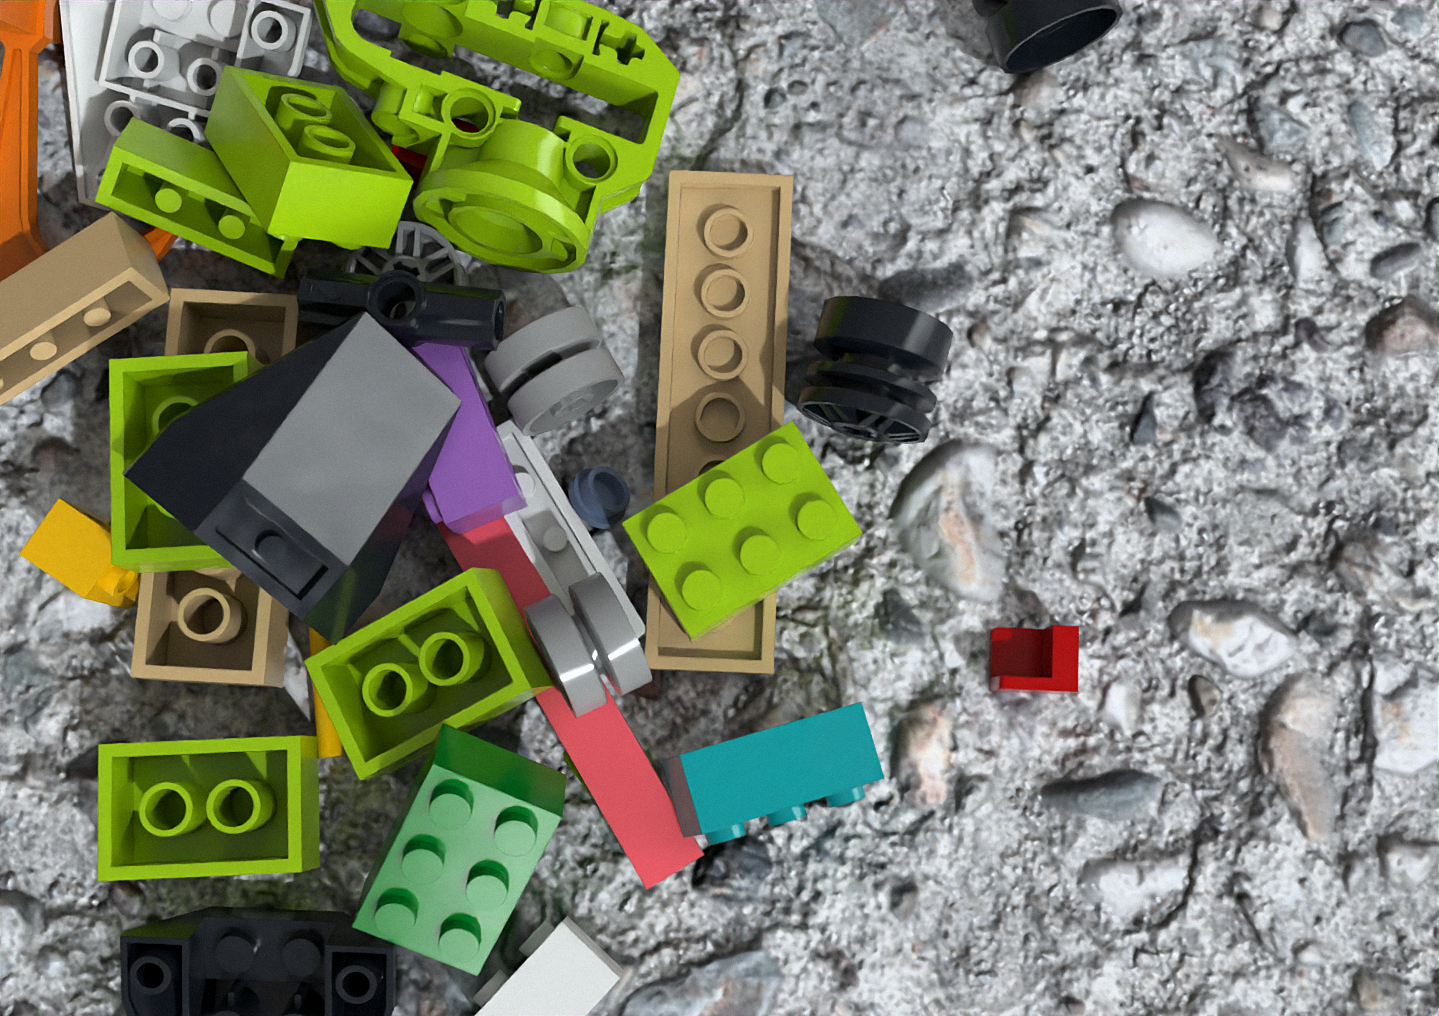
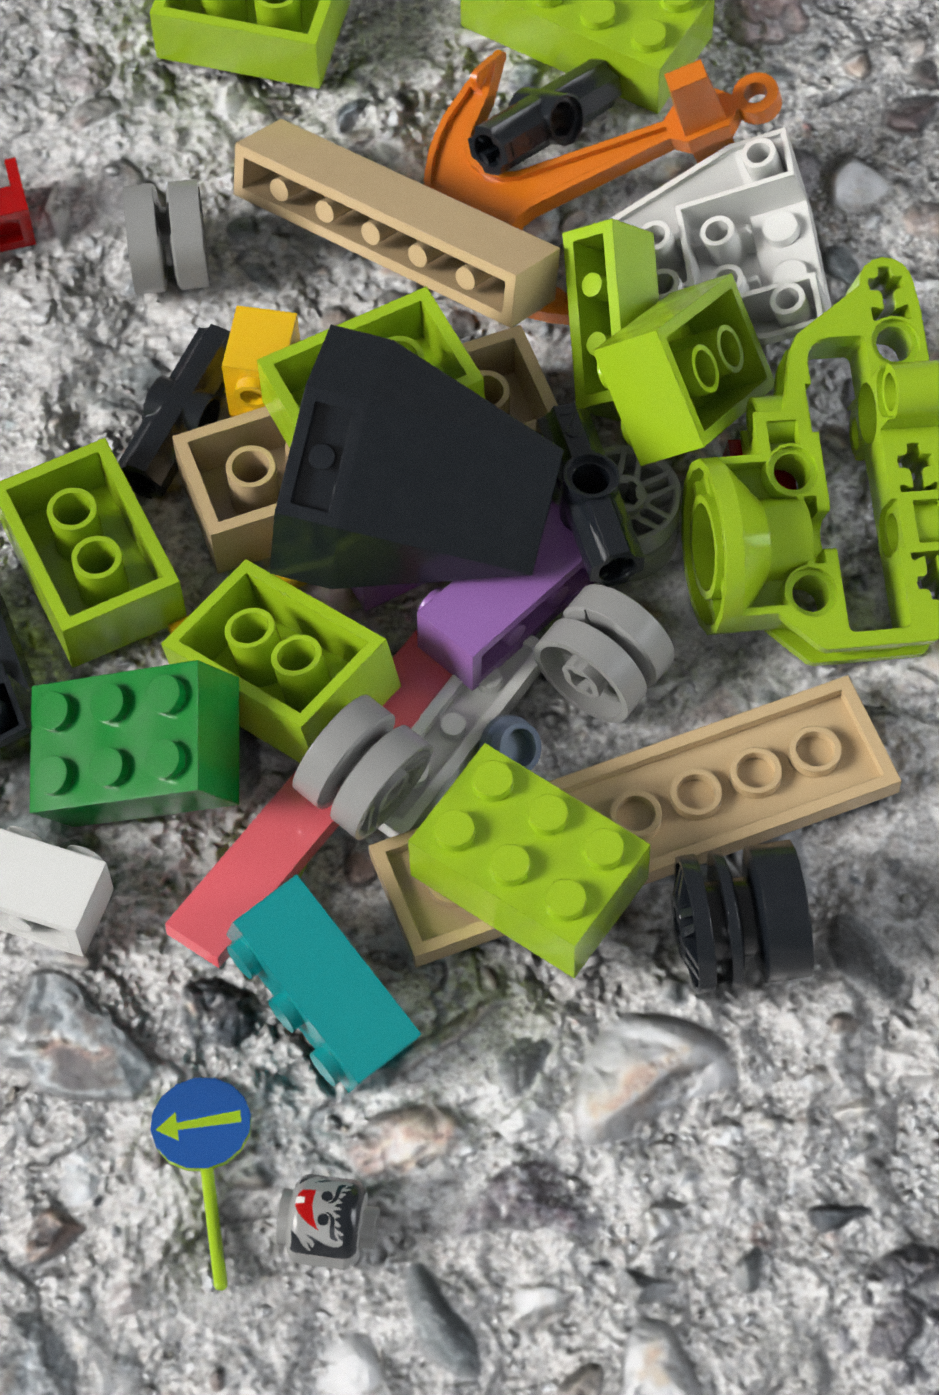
camera: 70 degrees right, 20 degrees down
(86, 652) = (174, 406): none -> black piece
(841, 930) = (201, 1129): none -> blue piece
(986, 855) = (326, 1221): none -> head
(1034, 660) = (538, 1195): red panel -> none

